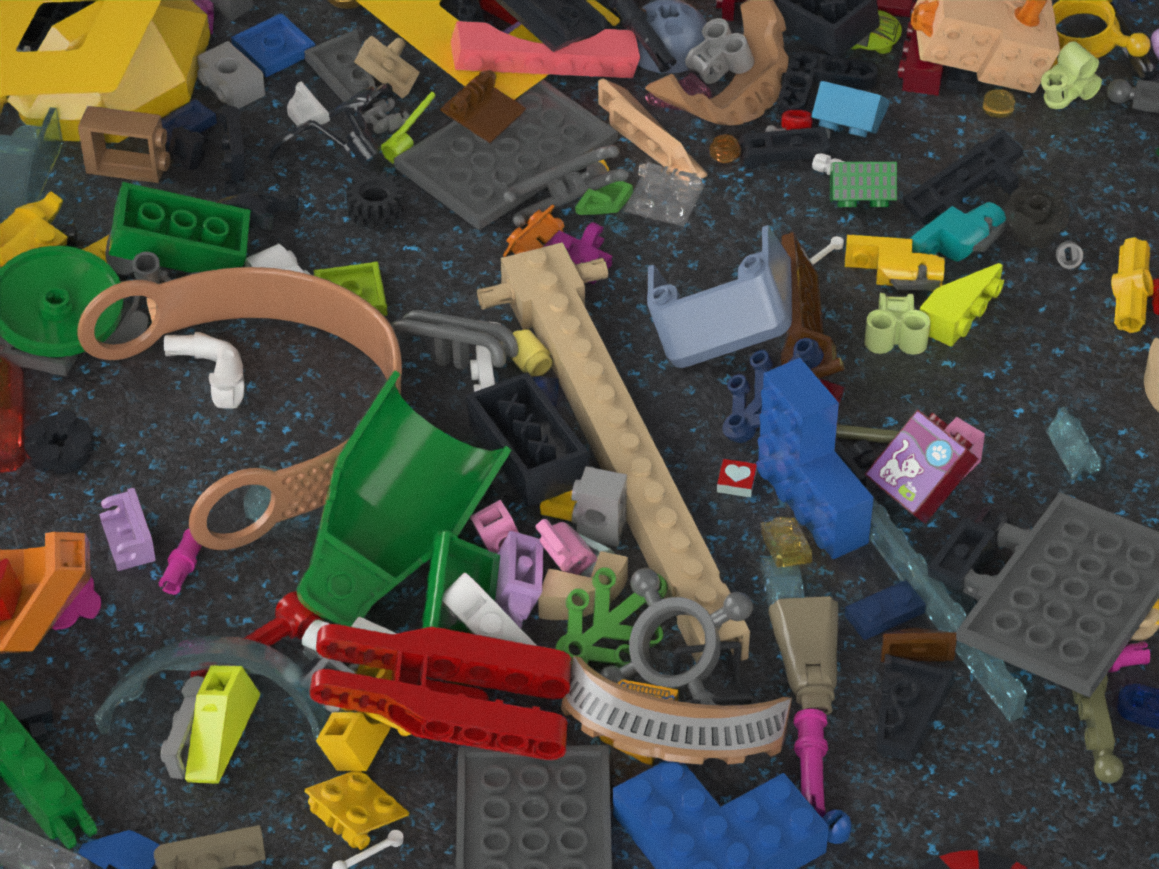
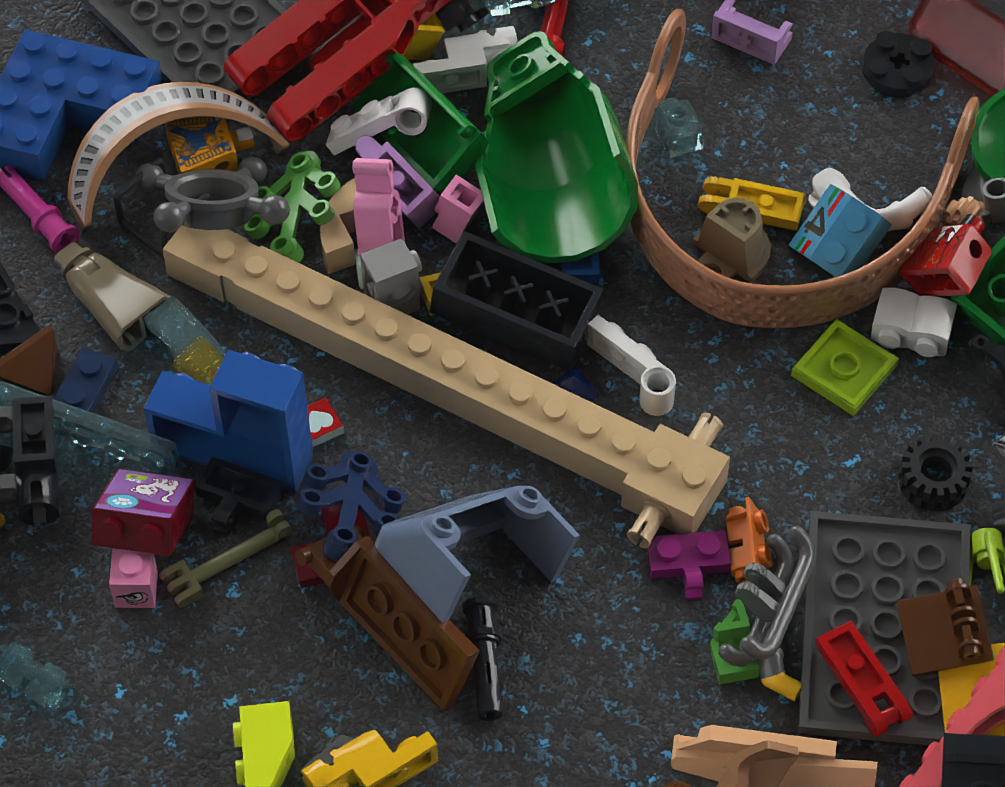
camera: 140 degrees right, 10 degrees up
(181, 562) = (691, 50): dark pink pin -> none
(221, 252) = (948, 259): none -> red torso
(262, 340) = (840, 233): none -> dark azure slope
(281, 416) = (777, 205): none -> yellow hinge
(324, 402) = (734, 240): none -> dark tan container
(461, 333) = (684, 351): dark grey piece -> none
(532, 354) = (621, 402): light yellow brick -> none
(557, 120) = (863, 677): none -> red plate
(665, 195) = (678, 692): clear hinge -> none
(836, 243) = (459, 767): white hinge -> none
(897, 324) = (311, 692): yellowish green piece -> none

